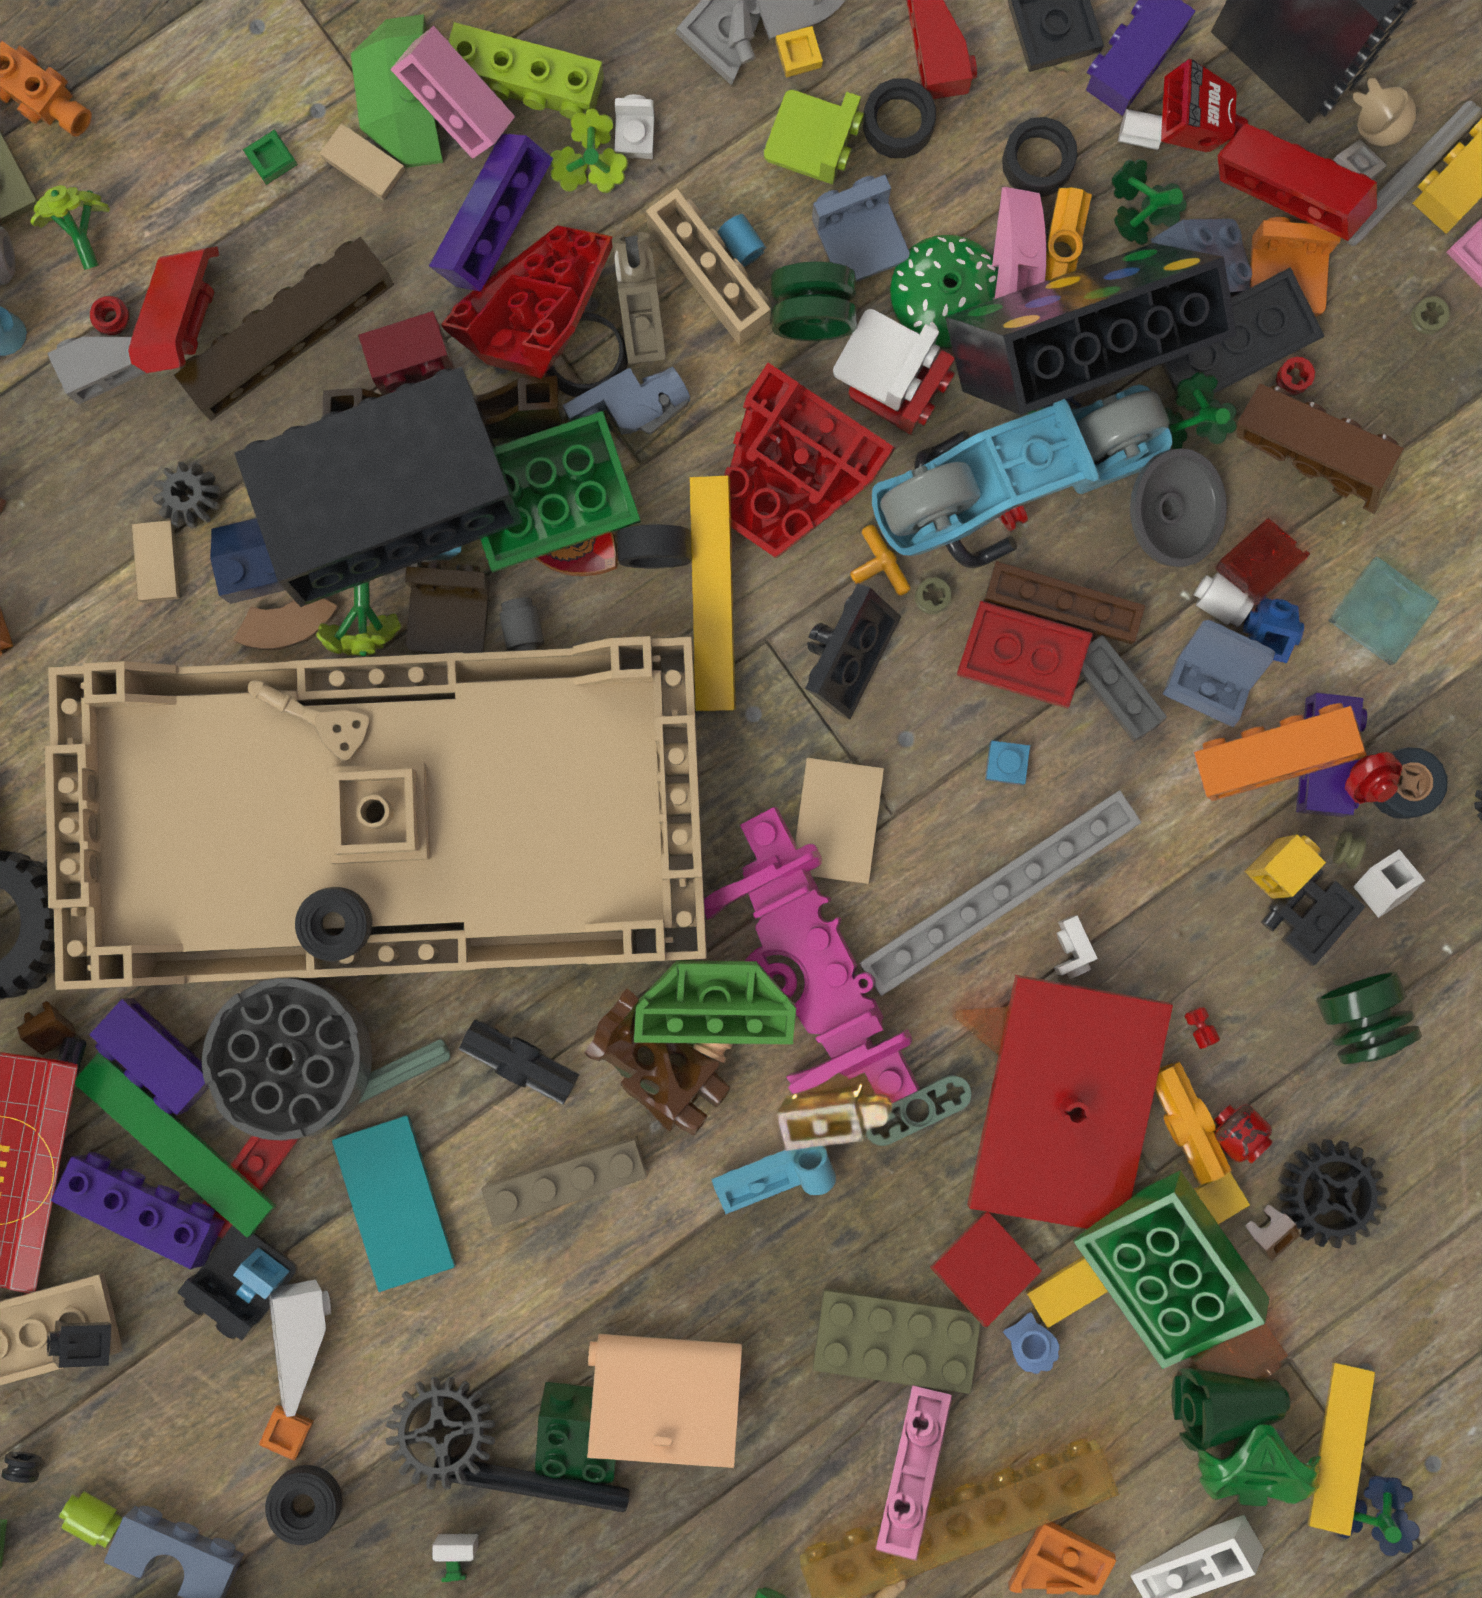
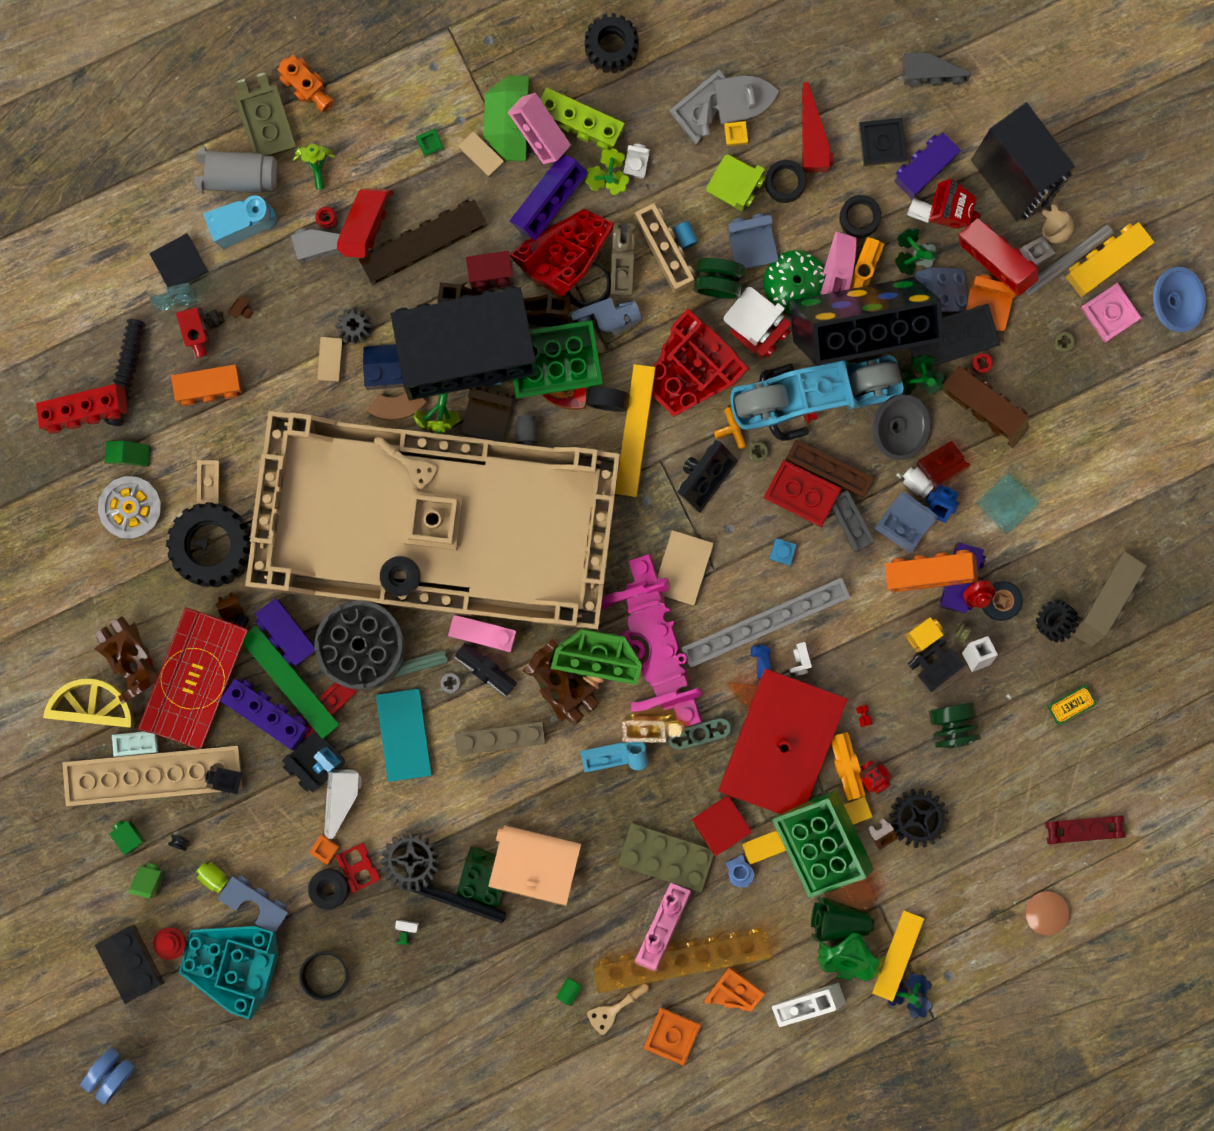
camera: 10 degrees right, 0 degrees up
(340, 1462) = (351, 871): none -> red piece
(471, 1102) = (455, 687): none -> light grey bush
(504, 998) = (482, 633): none -> bright pink slope
(1007, 959) = (763, 658): none -> blue arm

